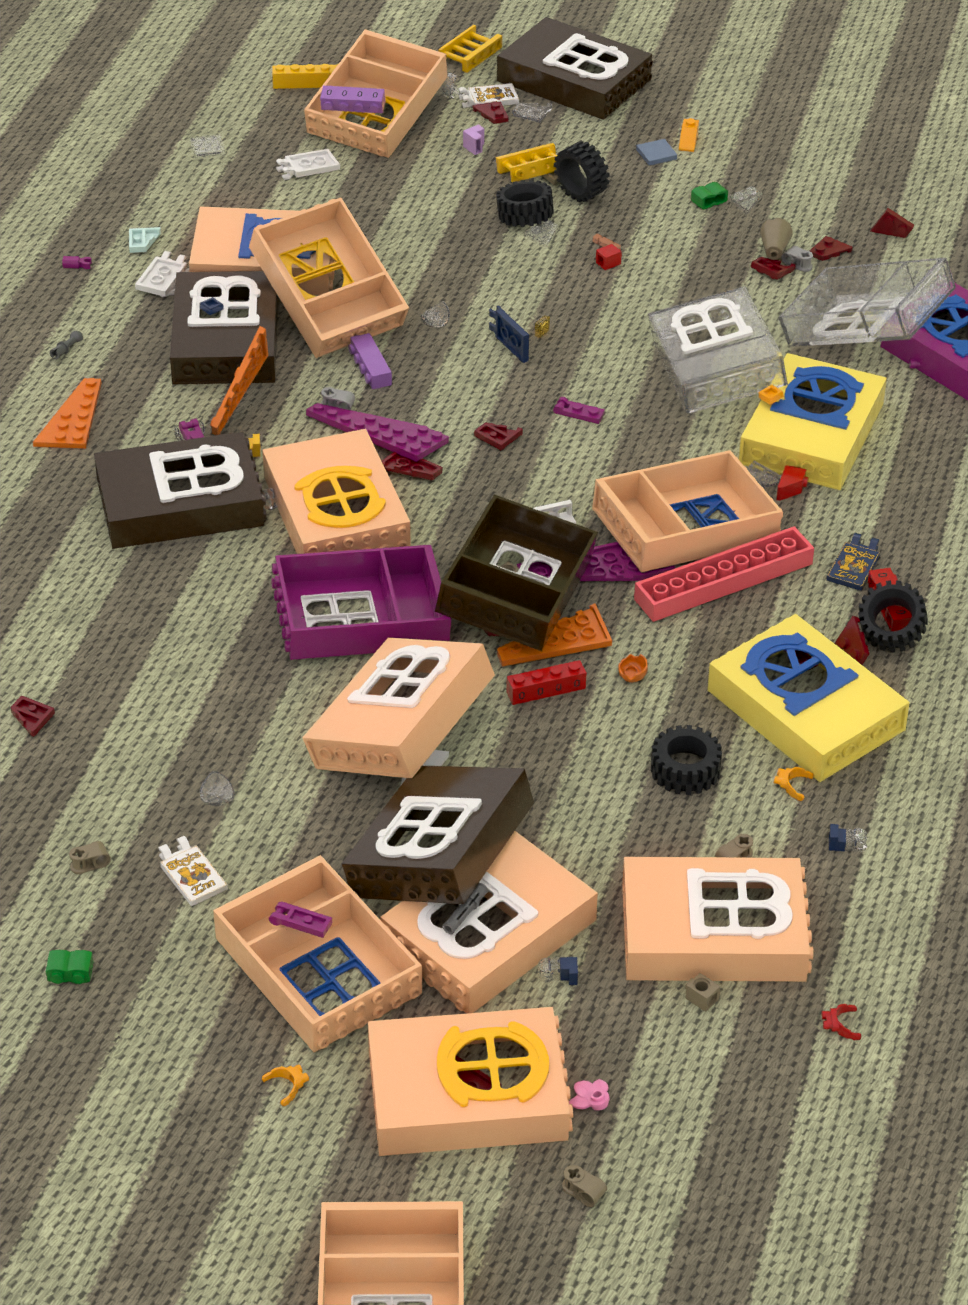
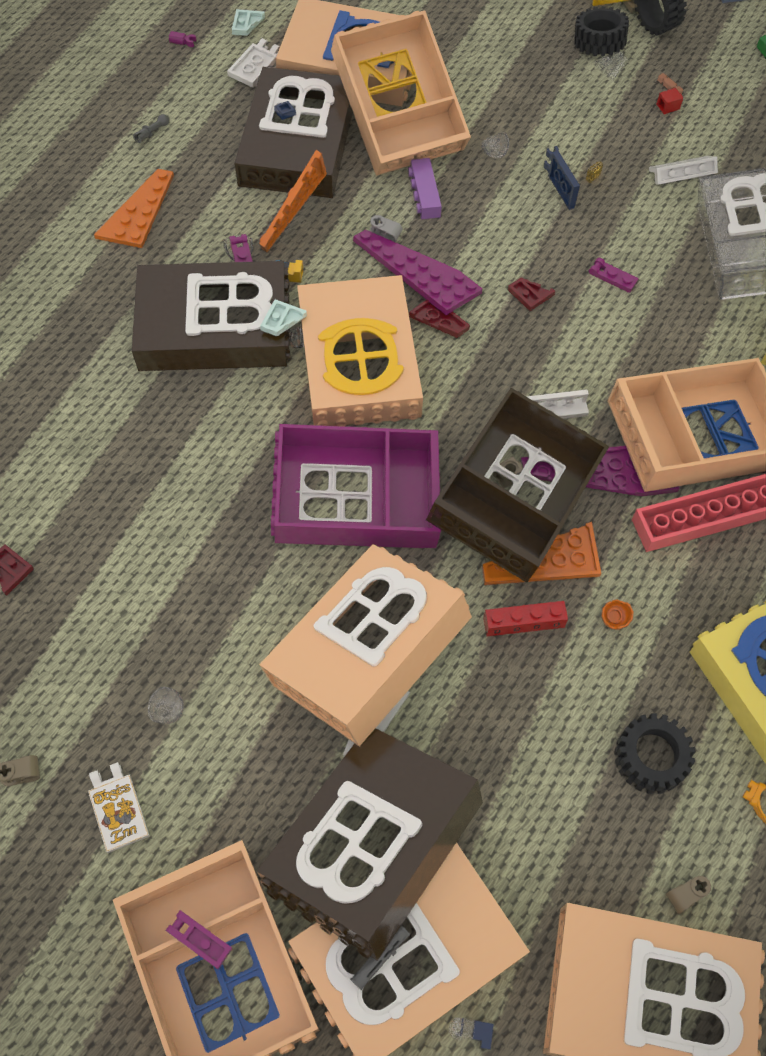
camera: 10 degrees right, 20 degrees up
(255, 474) = (281, 317): none -> light aqua wing
(632, 314) = (685, 169): none -> white fence

